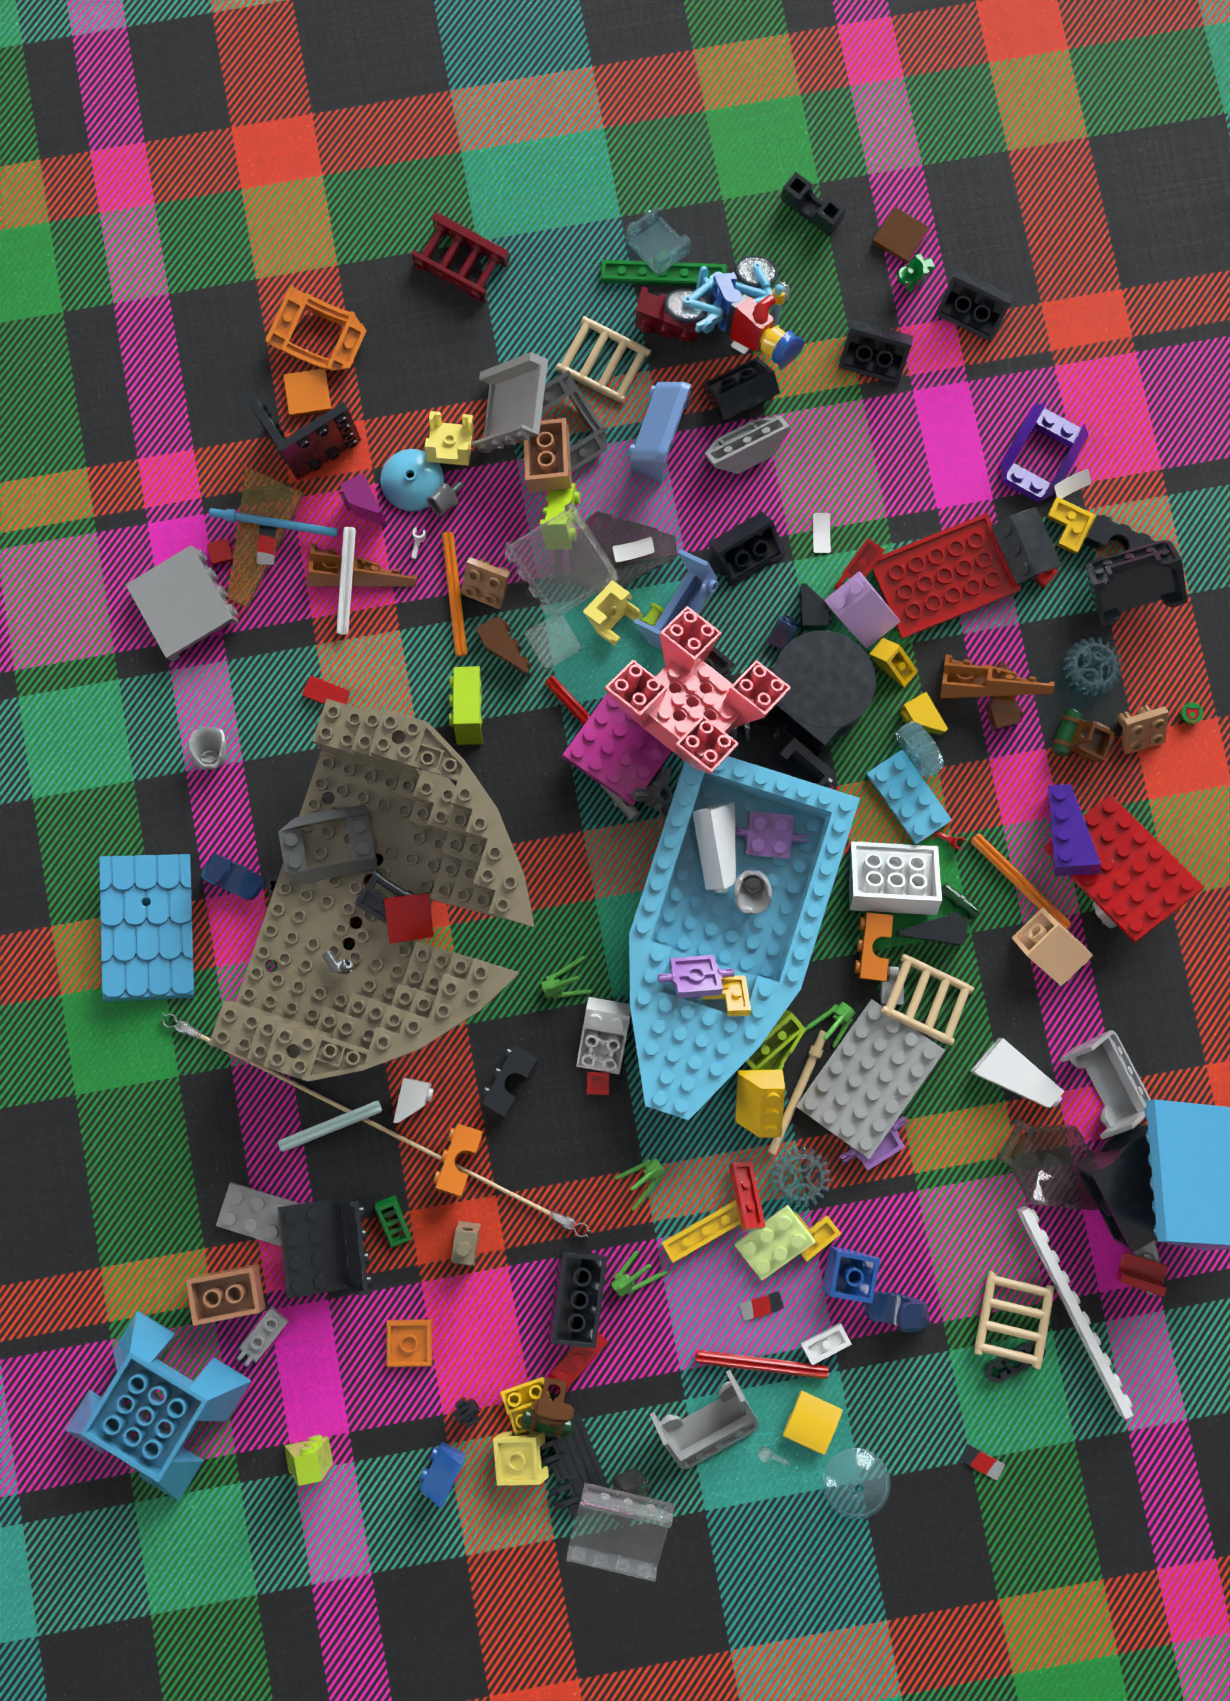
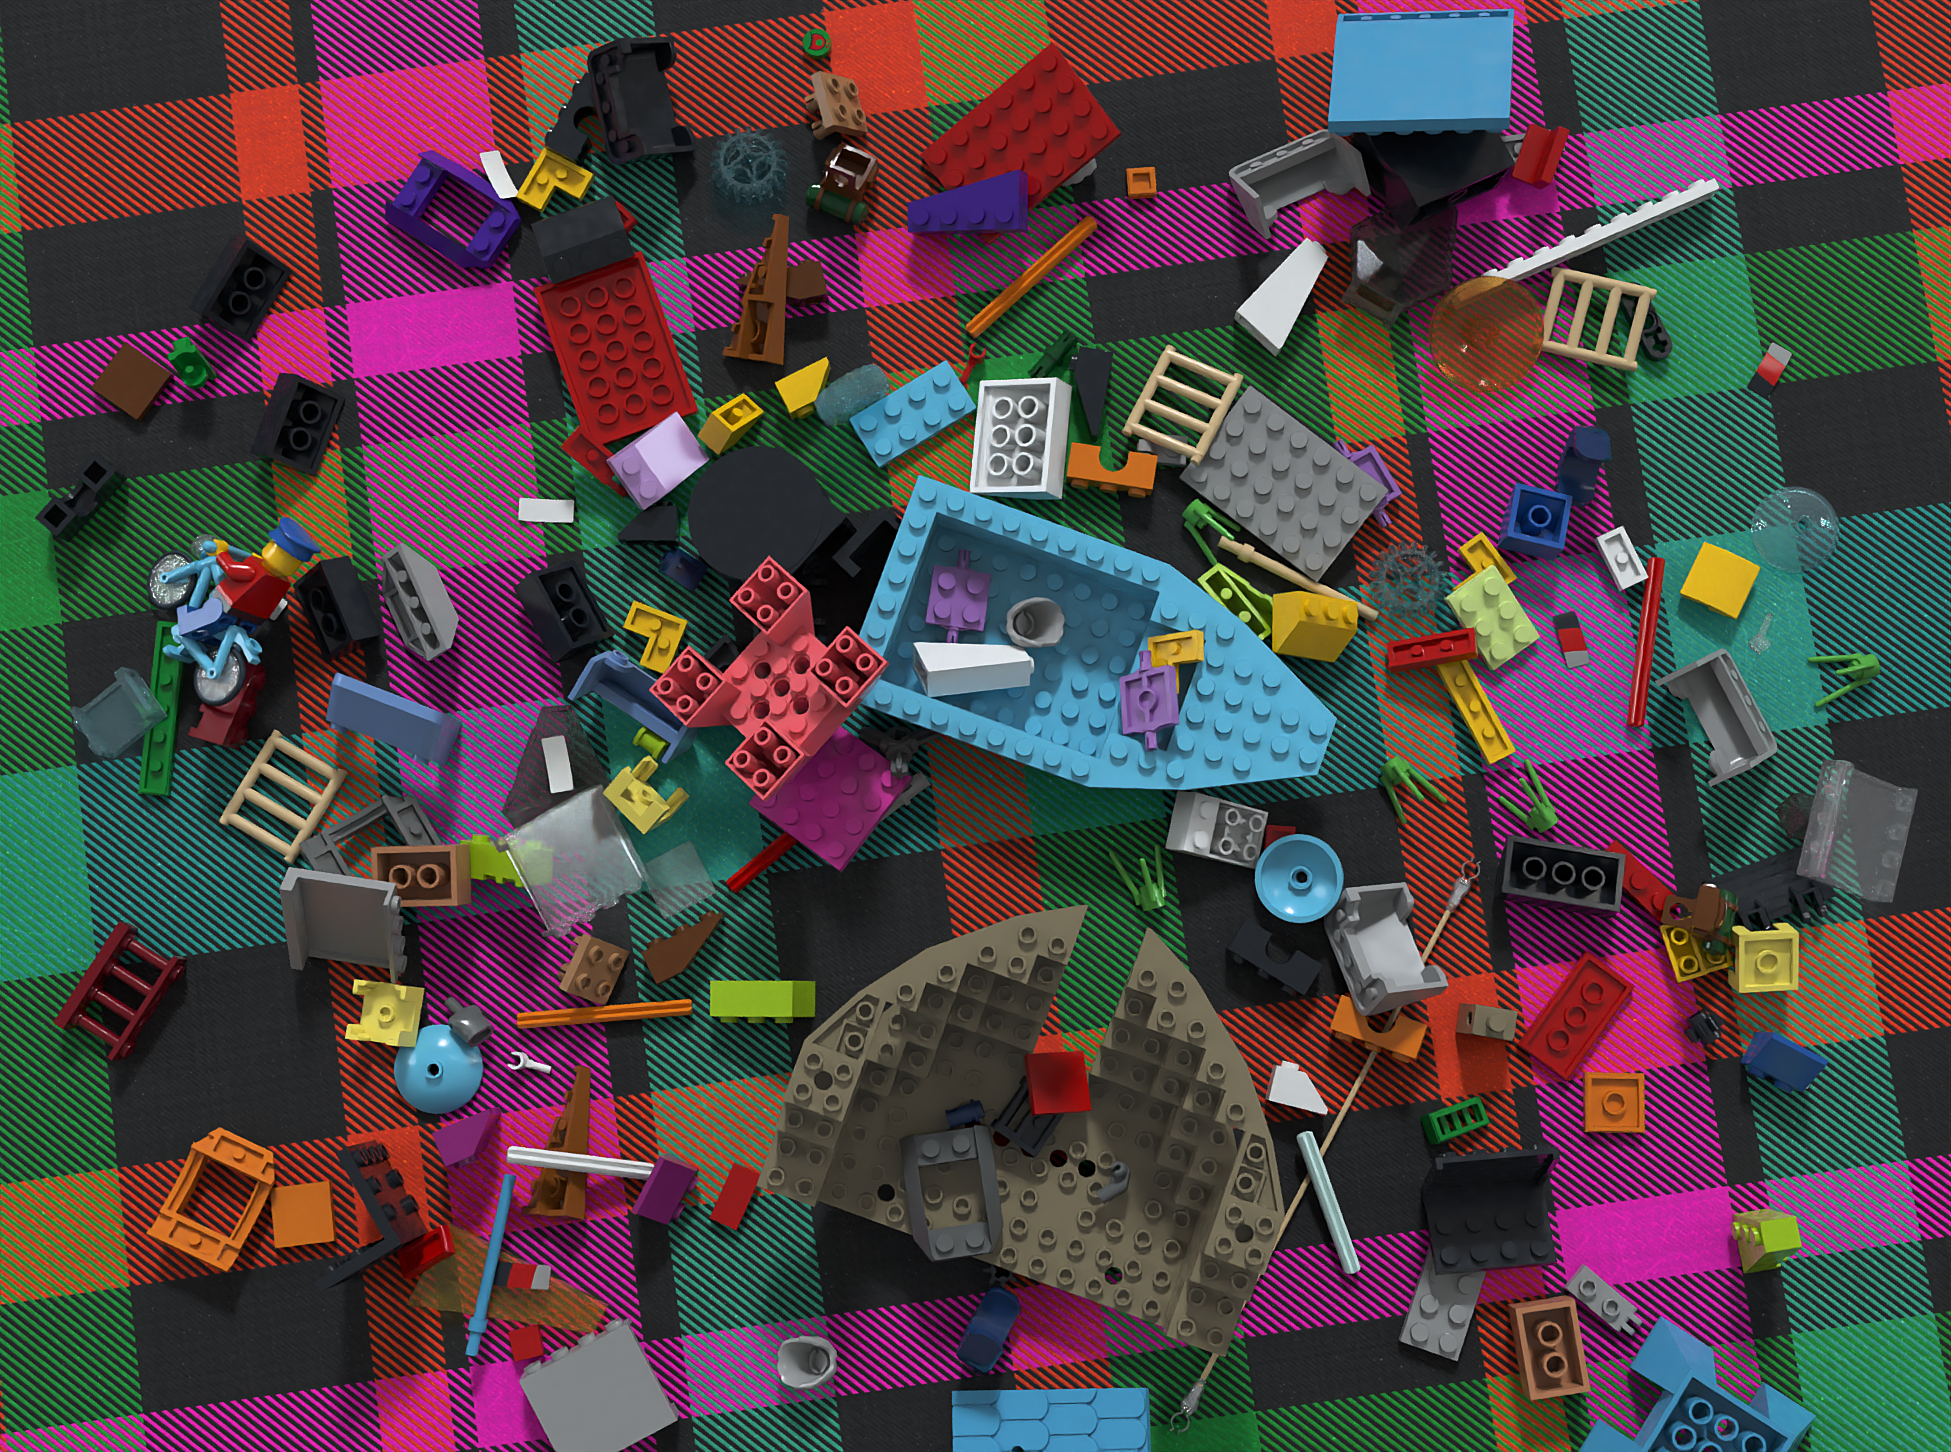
camera: 85 degrees left, 0 degrees up
(282, 477) = (426, 1252): none -> red tile
(329, 642) = (666, 1189): none -> magenta slope
(385, 851) = (965, 1114): none -> dark blue pin
(473, 1312) = (1575, 1015): none -> red tile
(517, 1160) = (1379, 950): none -> light grey windscreen
(560, 1086) = (1278, 881): none -> medium azure dish
(733, 621) = (664, 634): none -> yellow plate
(749, 1536) = (1859, 668): none -> bright green plant
(996, 1233) = (1486, 333): none -> clear orange dish
(1052, 946) = (1119, 241): light nougat slope -> none
(1100, 963) = (1141, 183): none -> orange tile

